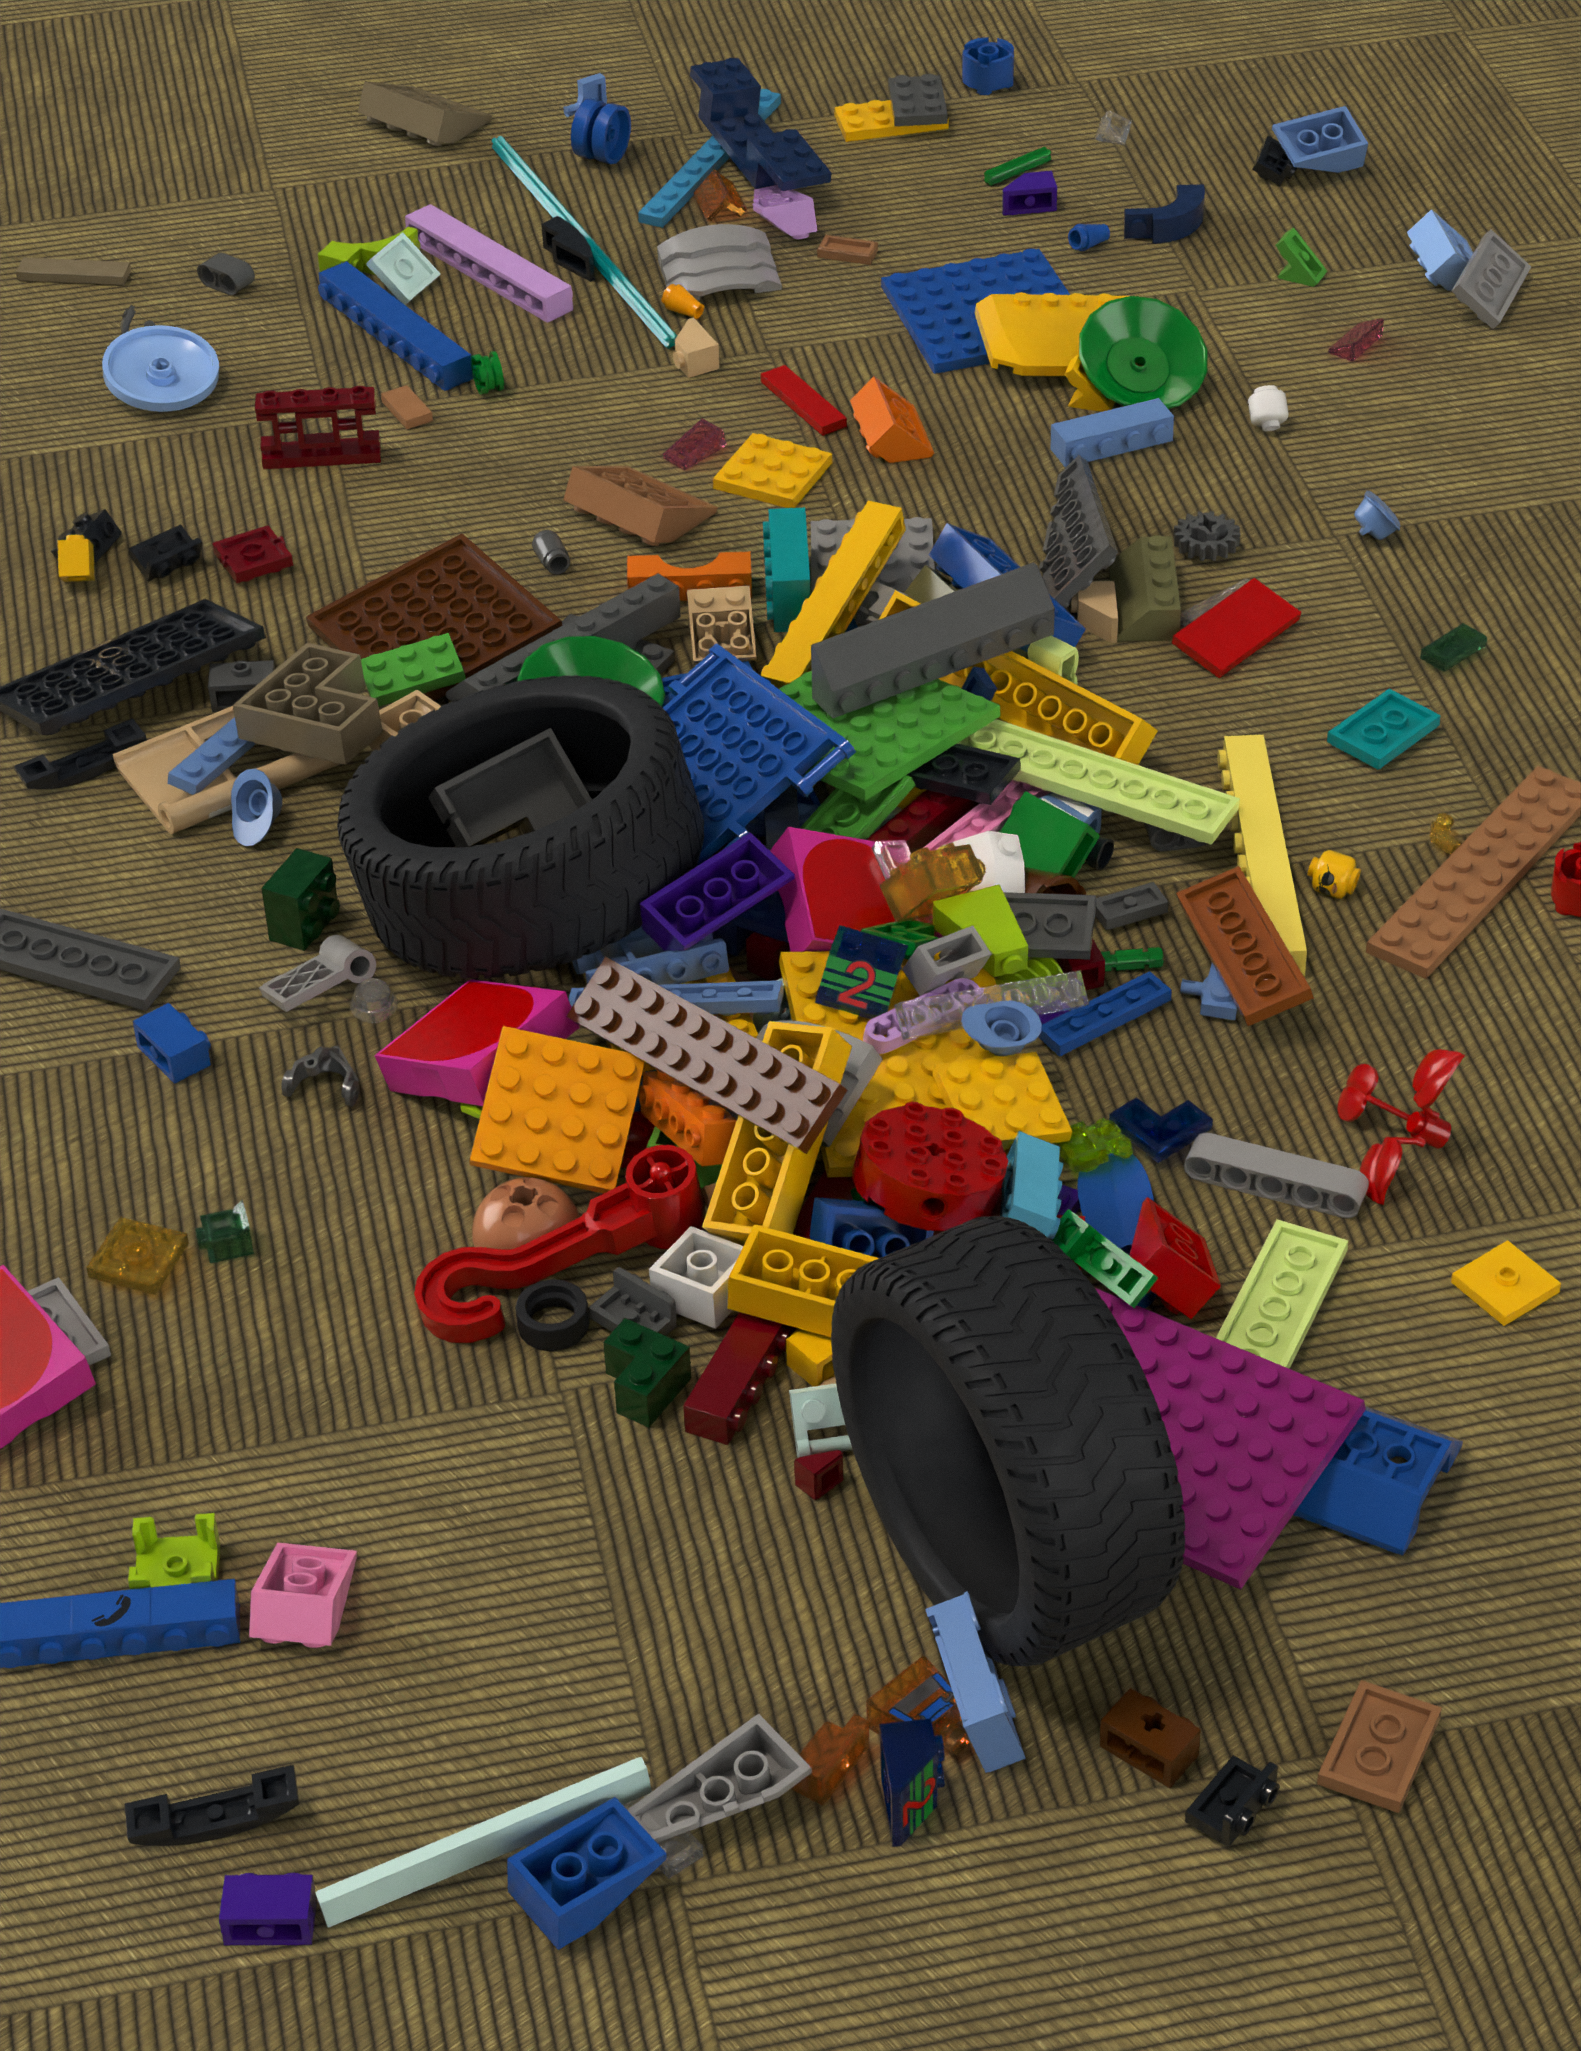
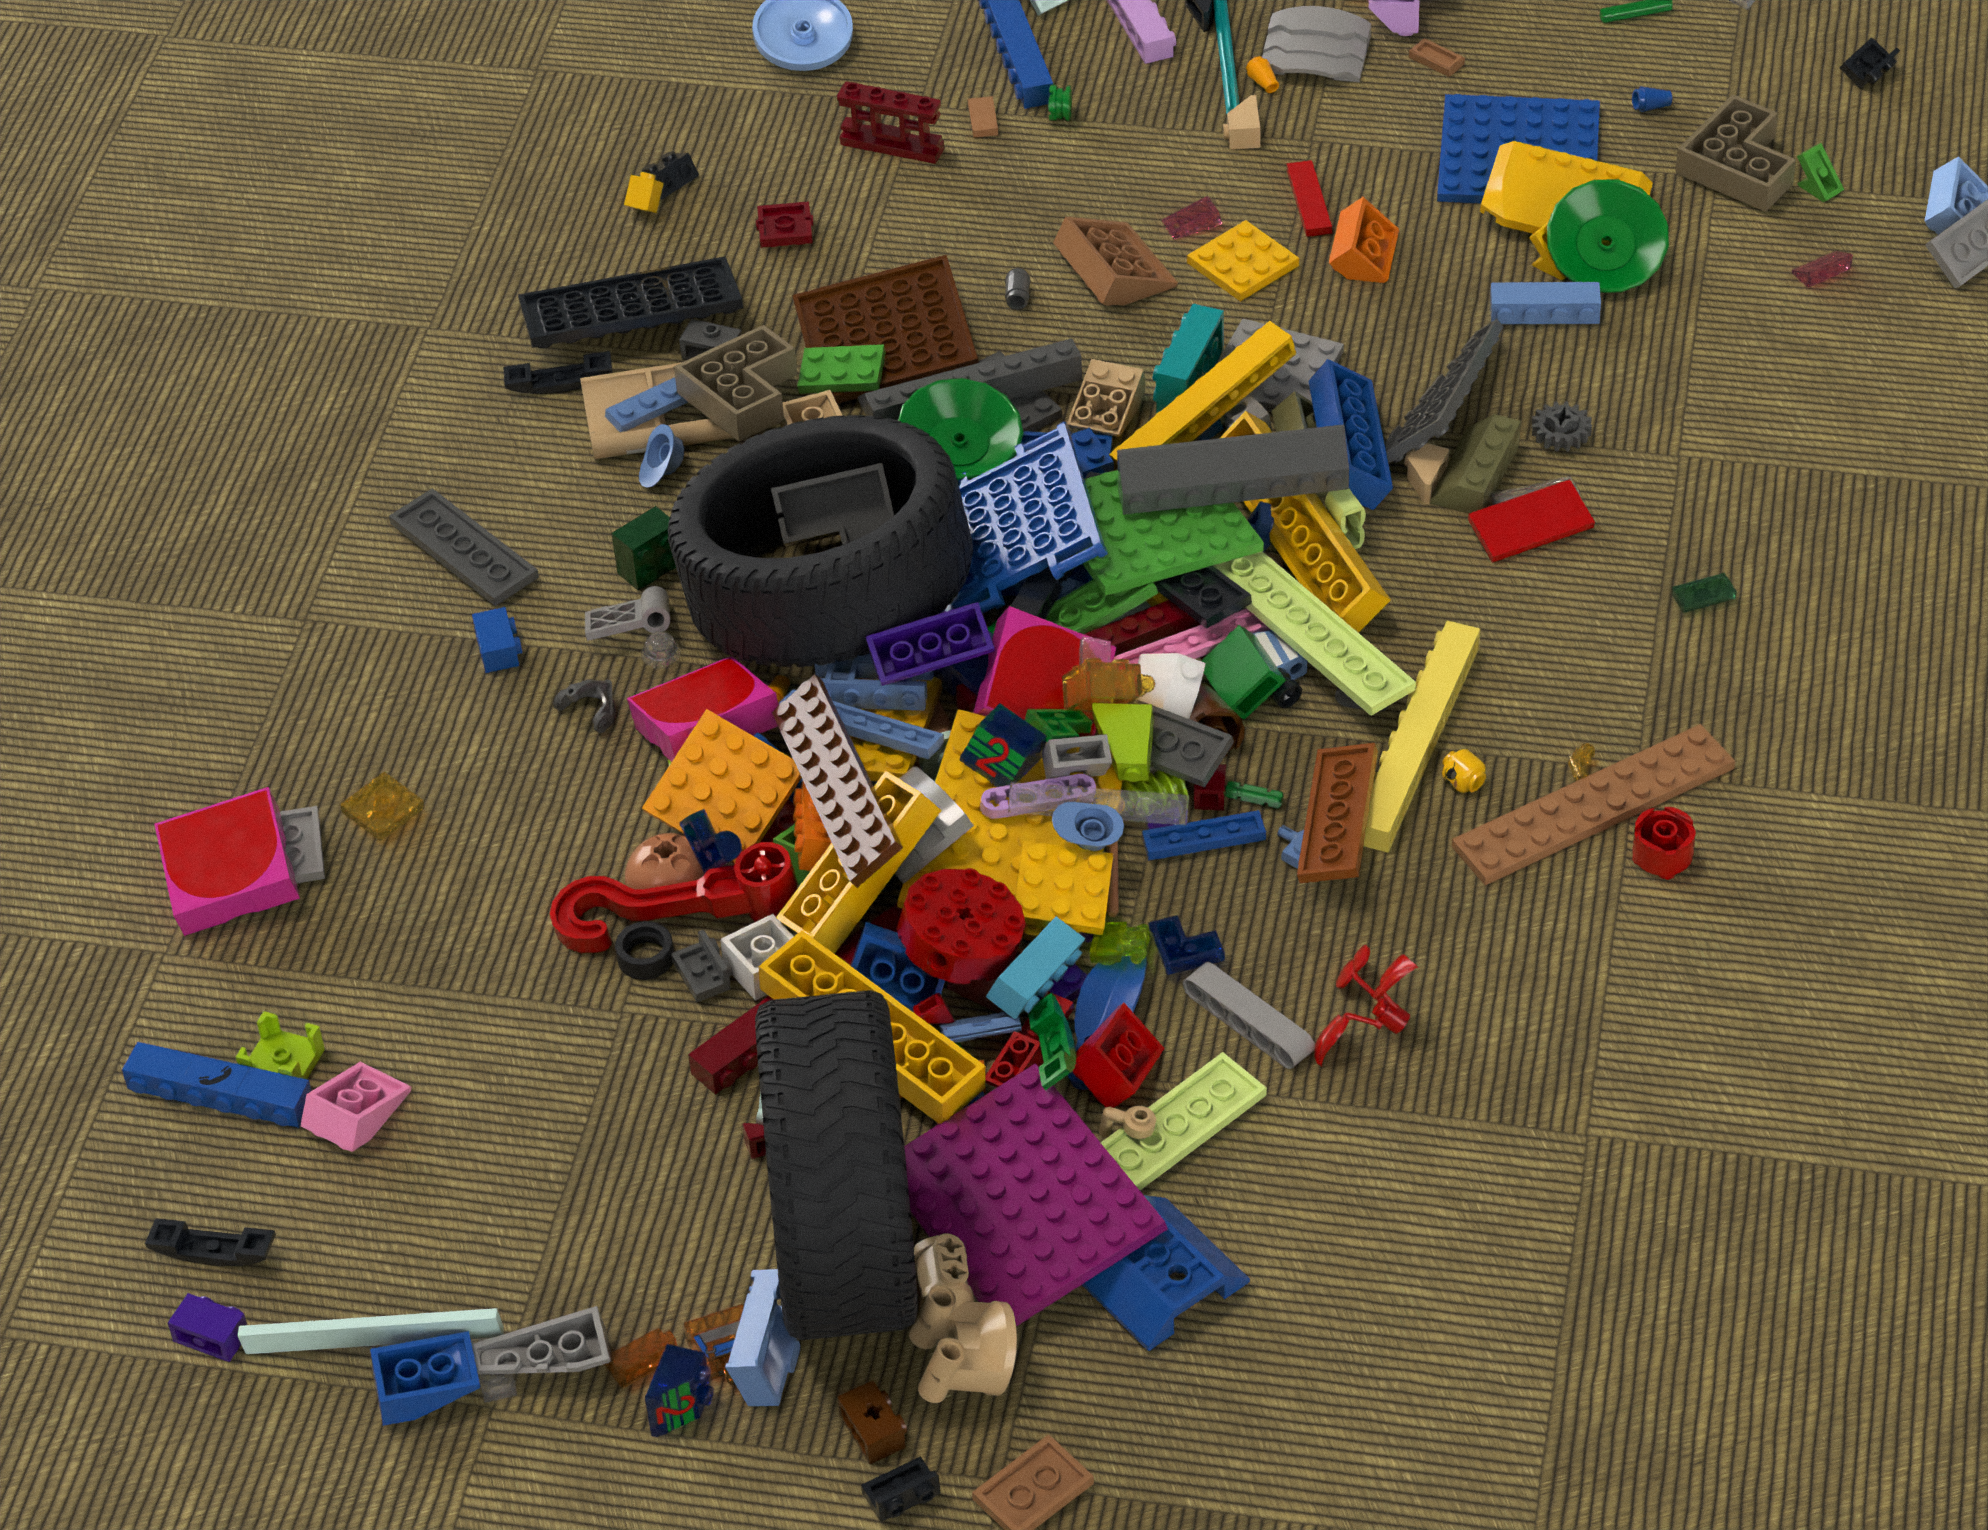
camera: 25 degrees right, 5 degrees up
(165, 553) = (718, 205): black bracket -> none
(225, 1234) = (450, 808): clear green window -> none
(578, 1179) = (709, 847): none -> clear blue brick
(647, 1370) = (685, 1019): dark green brick -> none
(726, 570) = (1138, 351): orange arch -> none
(1030, 194) = (1625, 42): dark purple slope -> none
(1130, 906) = (1282, 748): dark grey plate -> none
(1168, 222) = (1759, 89): dark blue arch -> none
(1205, 265) = (1733, 156): none -> dark tan brick
(1237, 1605) = (974, 1337): none -> tan piece
(1238, 1317) = (1131, 1121): none -> tan plate
(1268, 407) = (1692, 316): white head -> none
(1323, 141) = (1912, 57): medium blue slope -> none
(1376, 517) = (1719, 448): medium blue piece -> none
(1383, 729) = (1593, 651): teal plate -> none
(1505, 1283) = (1371, 1162): yellow plate -> none

